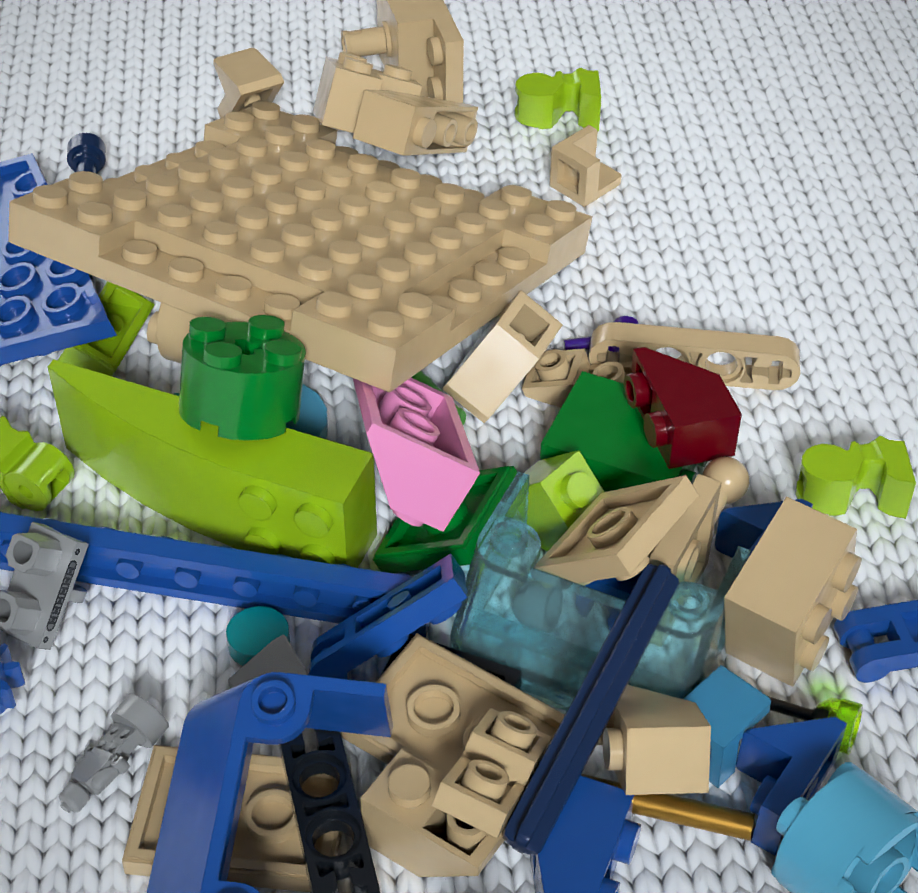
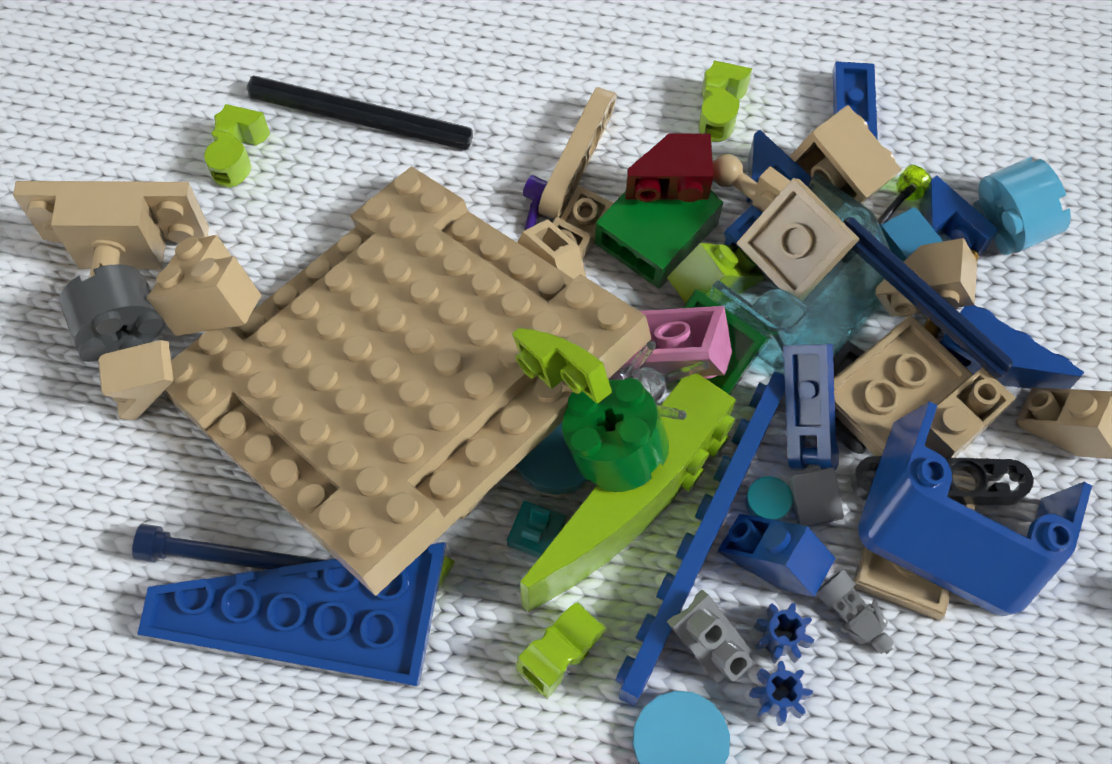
camera: 75 degrees left, 20 degrees up
(64, 670) = (782, 645): none -> blue gear
(171, 646) = (778, 553): none -> blue slope
(287, 276) = (559, 360): none -> lime slope
(300, 50) = (109, 311): none -> dark grey brick
(336, 417) = (655, 382): none -> clear plant
(415, 123) = (269, 255): tan slope -> none
(492, 771) = (950, 368): tan slope -> none
(578, 171) = (335, 158): tan panel -> none
(657, 185) = (360, 112): none -> black axle

